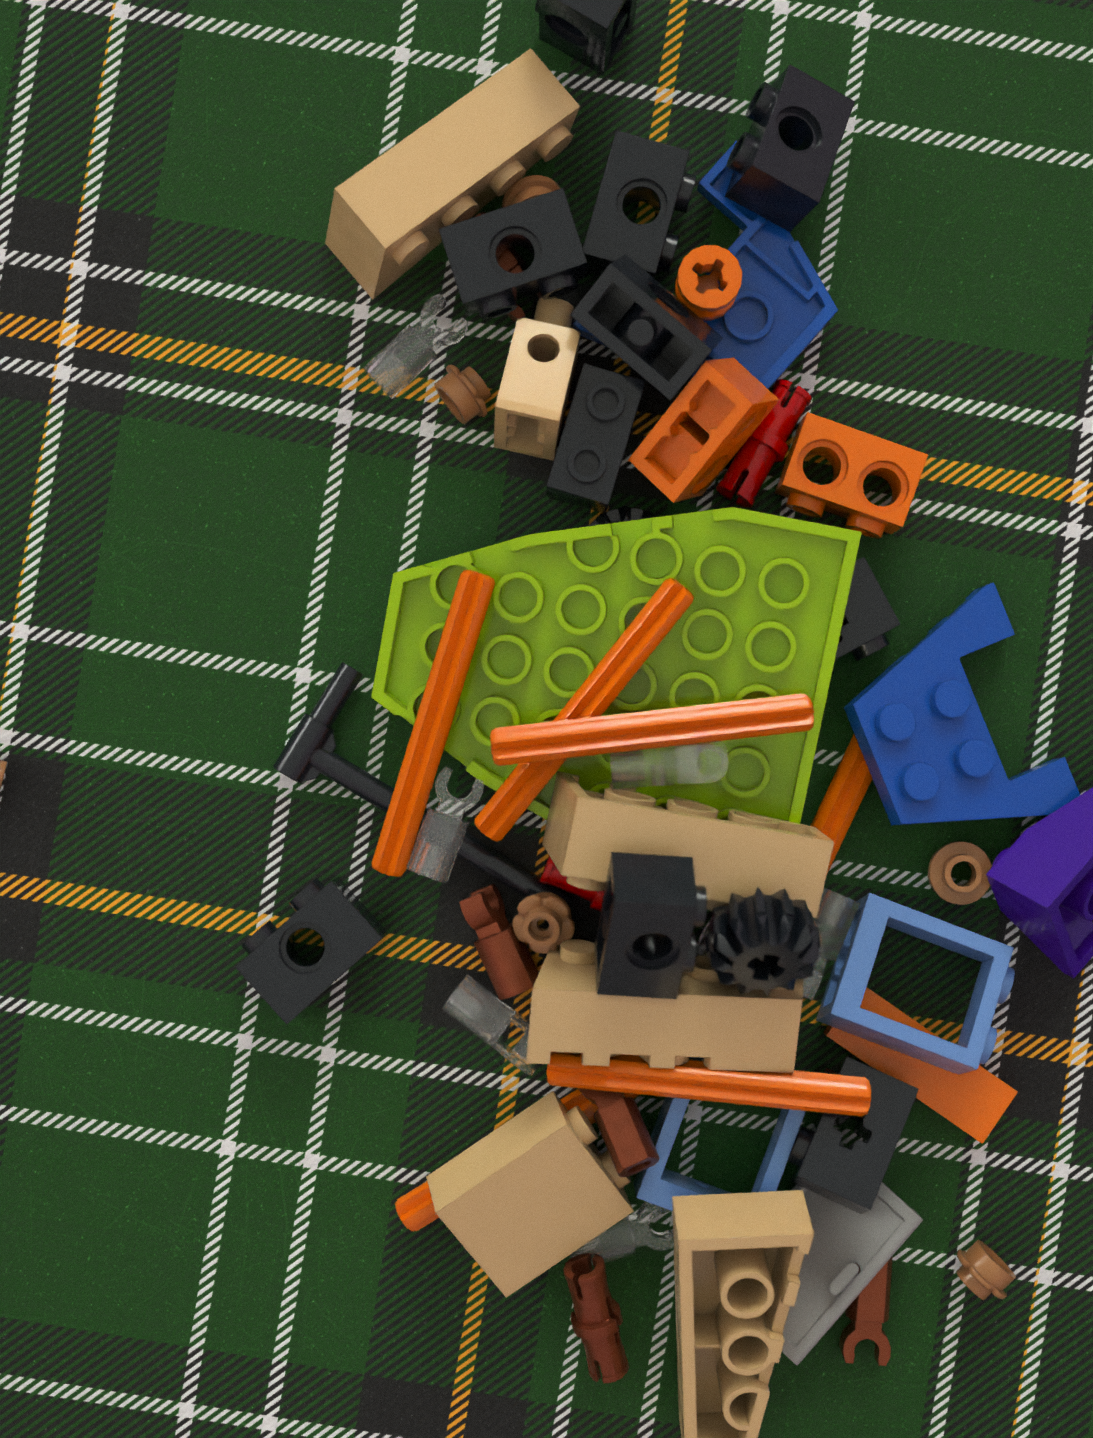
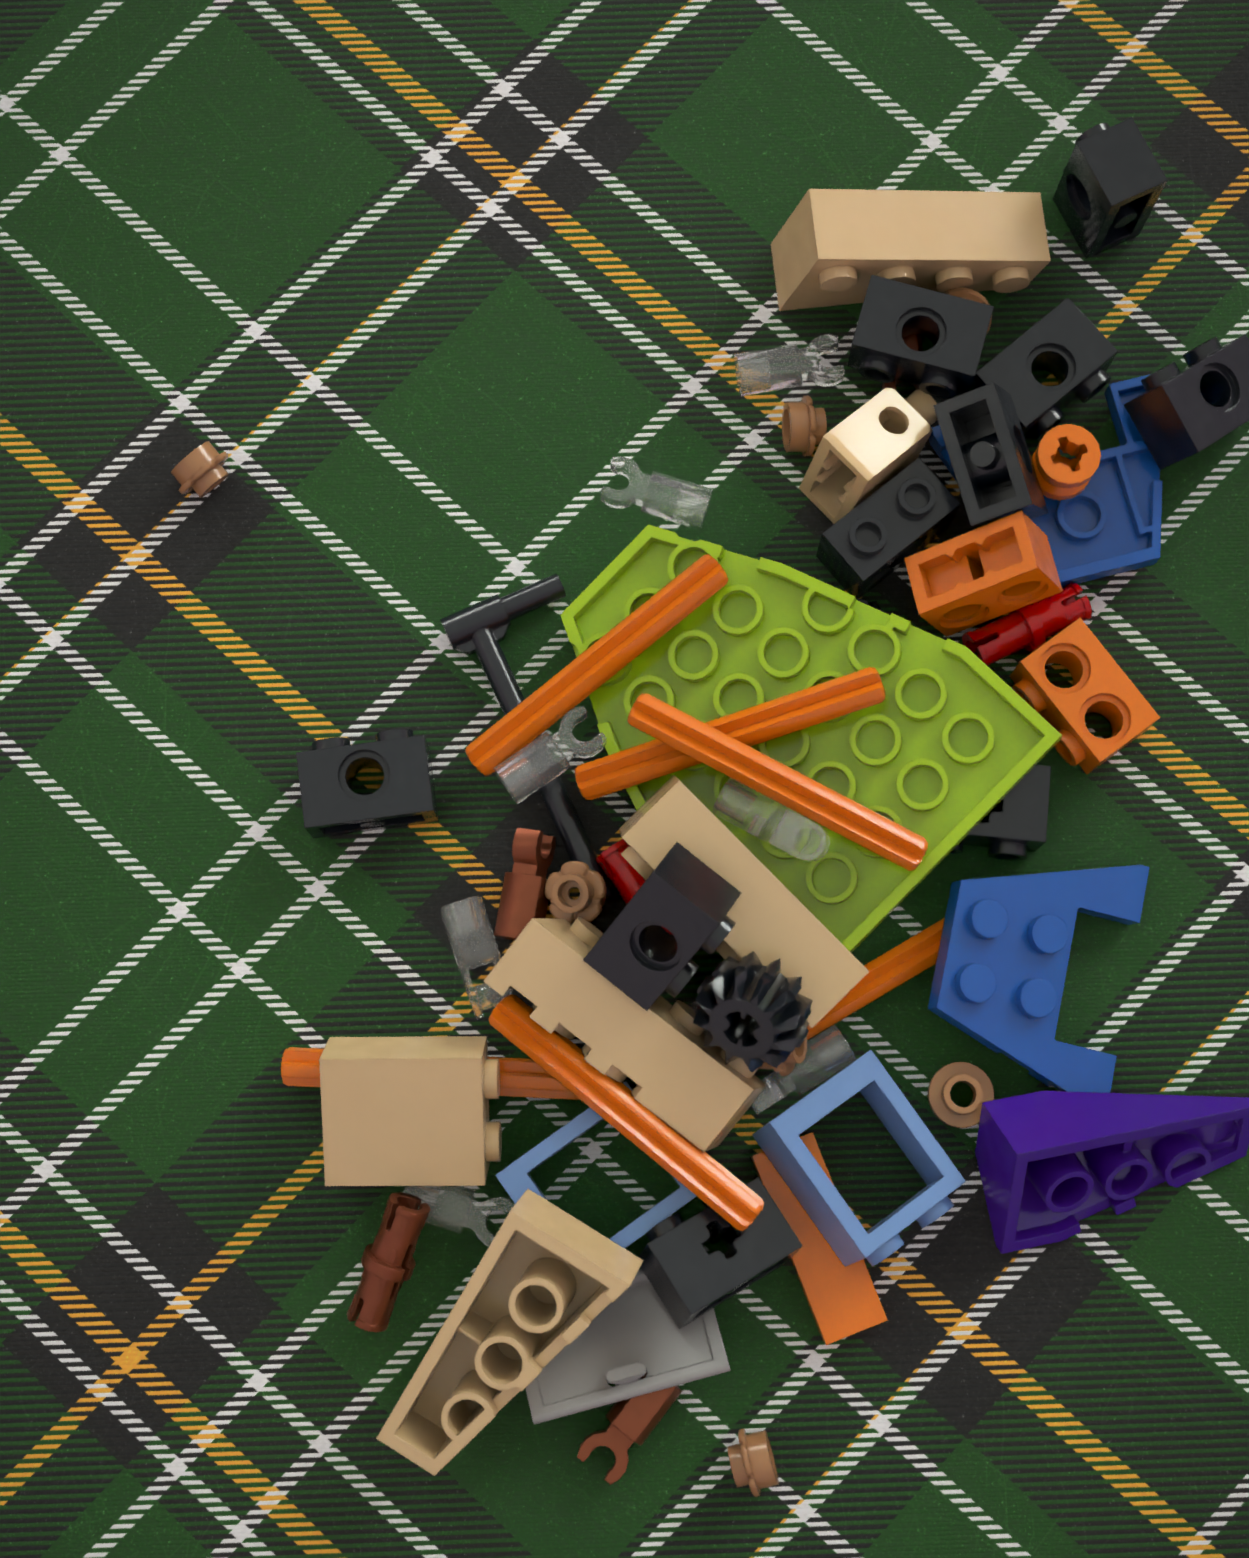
camera: 30 degrees right, 10 degrees down
(383, 534) = (658, 495): none -> clear bar
(623, 1131) = (523, 1106): copper bar -> none

